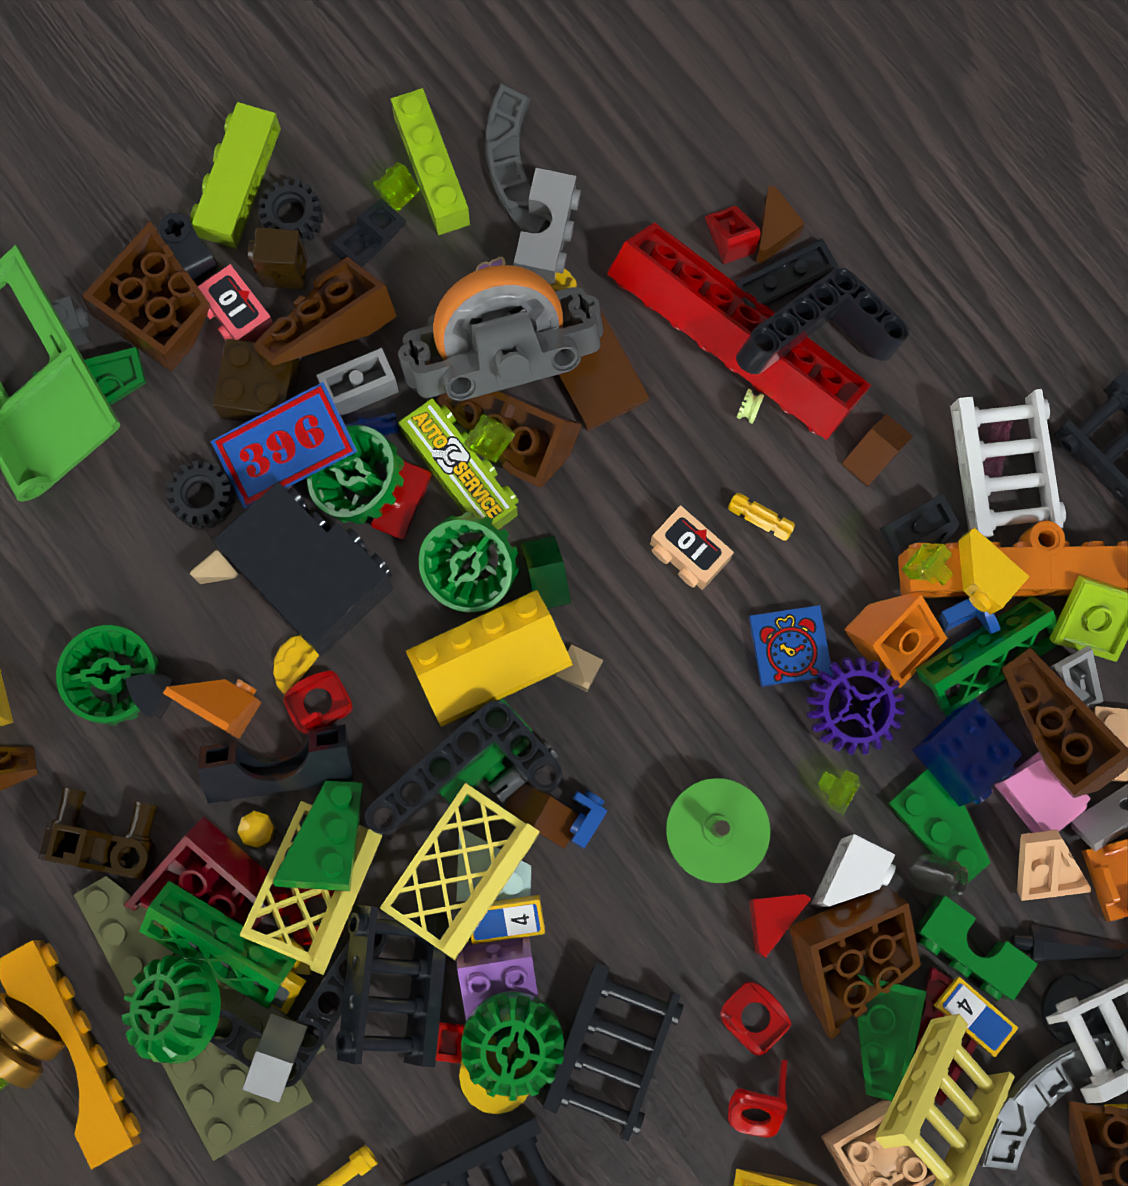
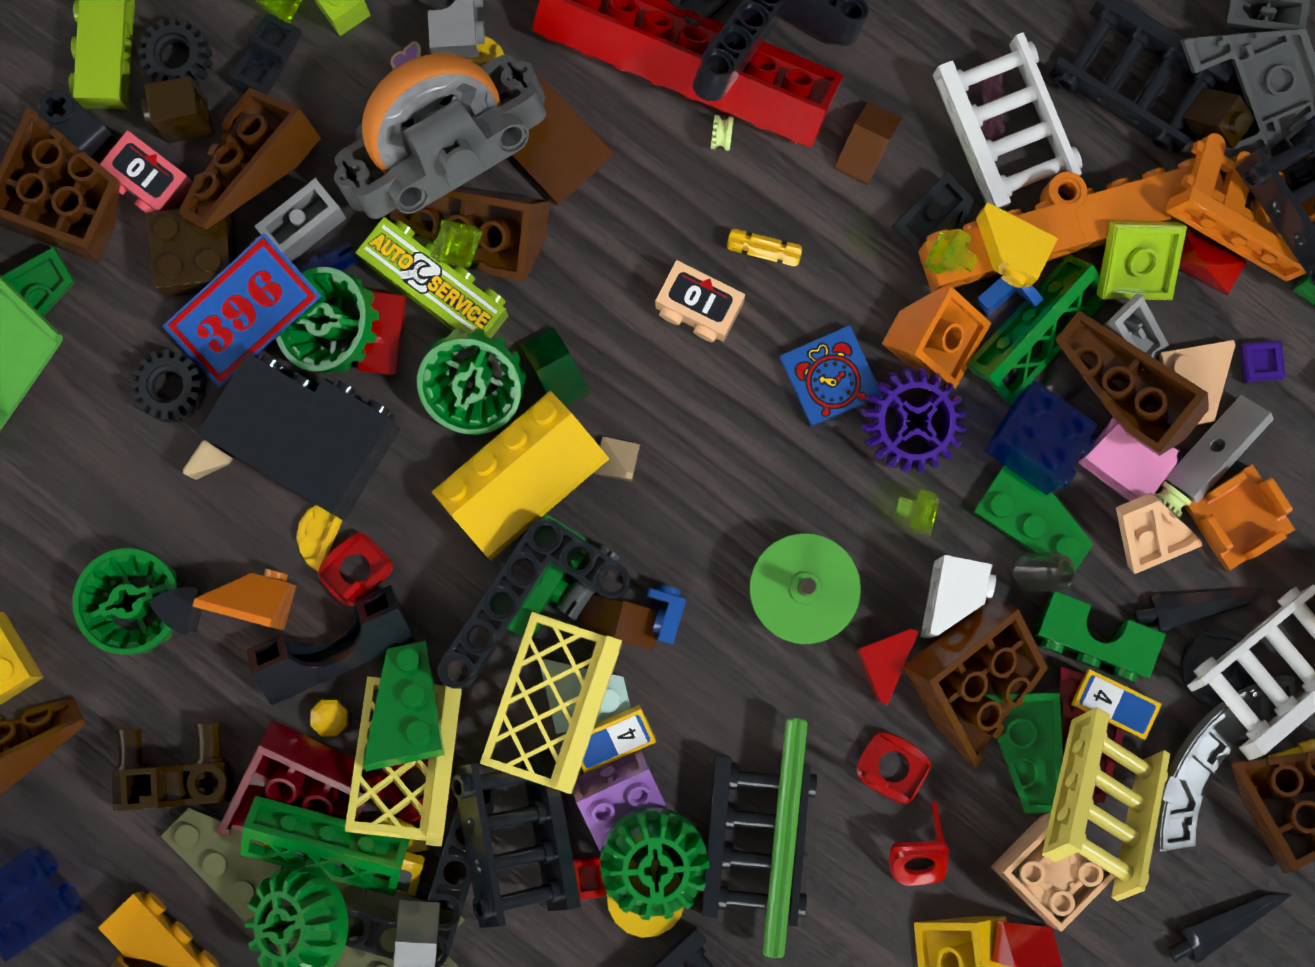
camera: 10 degrees left, 5 degrees up
(638, 1056) = (784, 838): none -> bright green axle
(1074, 841) = (1173, 498): none -> yellowish green bush

